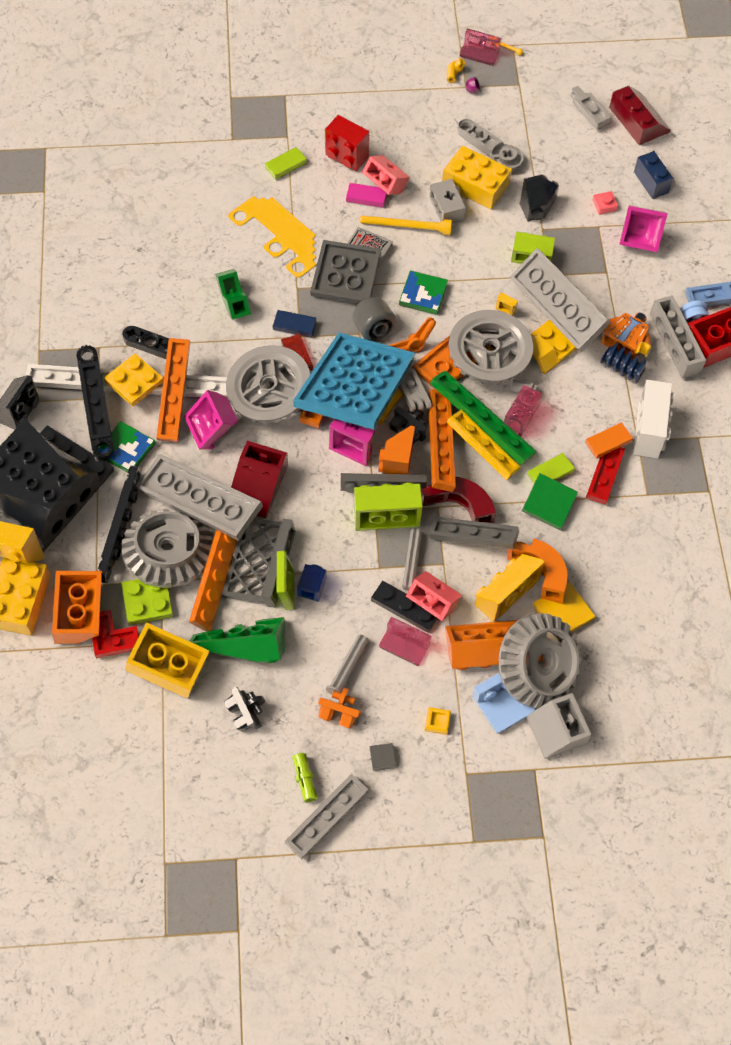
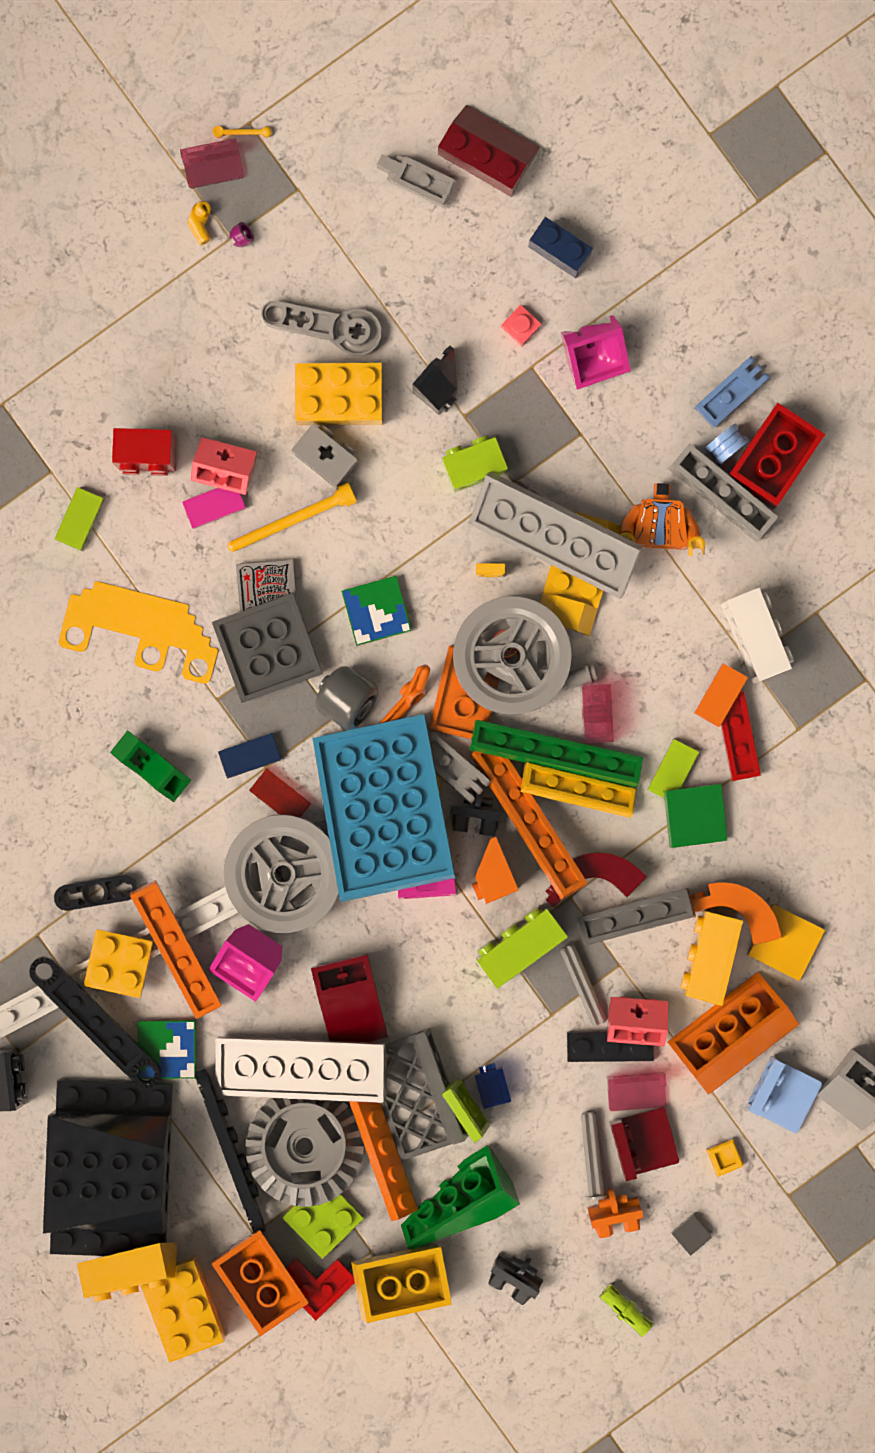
camera: 30 degrees left, 25 degrees up
(326, 816) = (675, 1336): light grey plate -> none
(352, 480) = (483, 919): dark grey plate -> none
(388, 675) = (644, 1142): none -> dark red bracket
(527, 642) = (779, 1029): light grey gear -> none
(624, 362) = (678, 567): dark blue piece -> none

